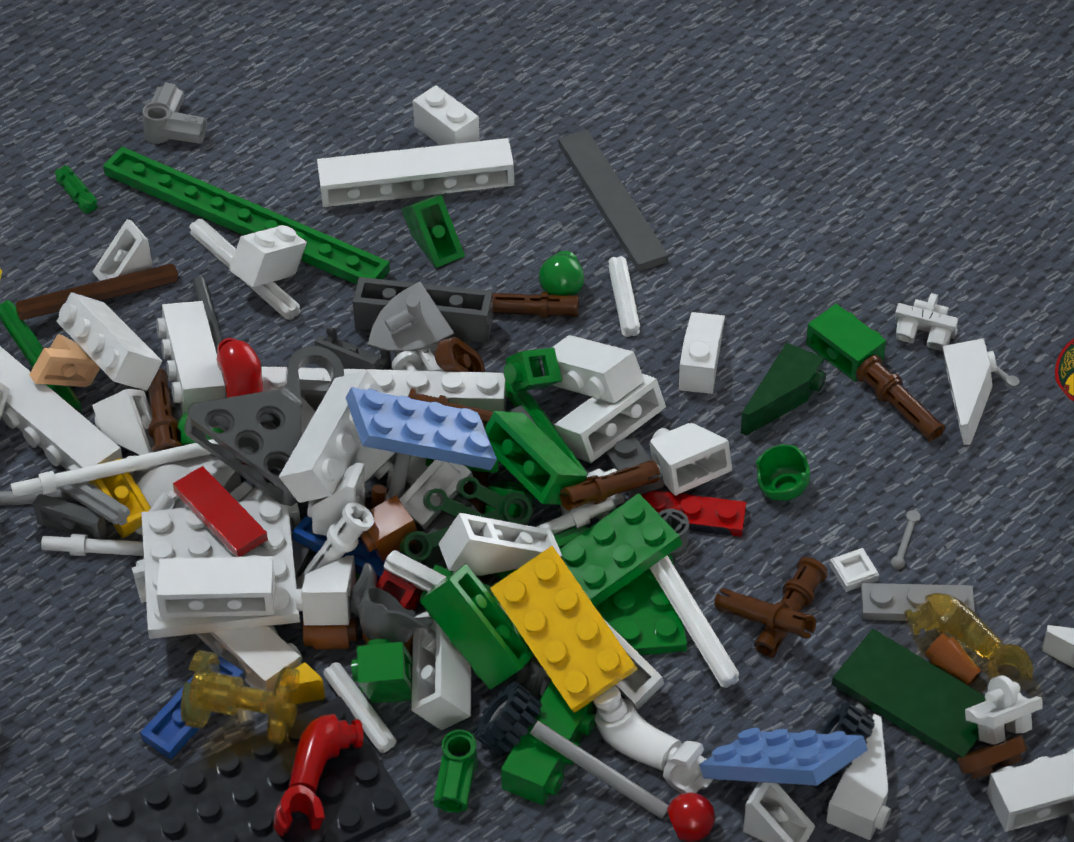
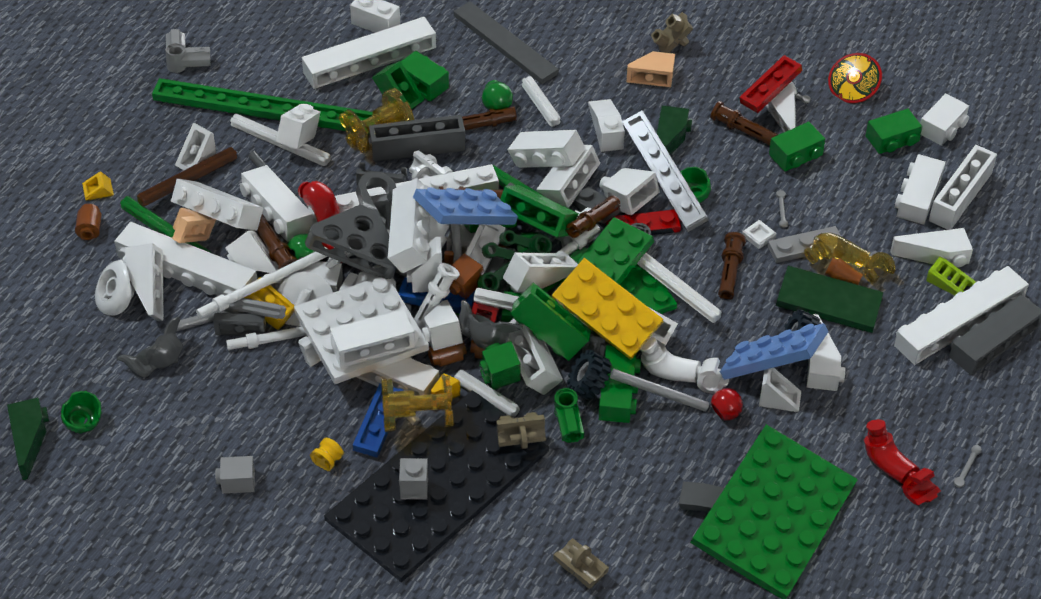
camera: 20 degrees left, 0 degrees up
(76, 189) = (138, 113): green axle -> none
(101, 736) = (327, 454): none -> yellow wheel
(191, 807) = (413, 478): none -> light grey brick
(220, 512) = (350, 292): red tile -> none
(317, 744) = (477, 420): red piece -> none
(373, 776) = (521, 430): none -> dark tan hips
(396, 266) = (392, 111): none -> clear yellow piece
(409, 322) = (415, 146): light grey shield -> none
(457, 356) = (454, 161): reddish brown plate -> none
(475, 222) = (426, 75): none -> green brick
(525, 370) = (504, 161): green brick -> none
(748, 442) = (666, 171): none -> tile
(776, 615) = (729, 271): reddish brown pin -> none
(801, 286) = (652, 69): none -> light nougat slope
(844, 340) = (695, 96): green brick -> none
(854, 240) = (673, 34): none -> dark tan hips
(927, 318) = (739, 71): white hips -> none
(956, 348) = (770, 84): none -> red plate
(962, 450) = (797, 146): none -> green brick
(980, 762) = (896, 319): reddish brown plate -> none
(1003, 706) = (888, 293): white hips -> none

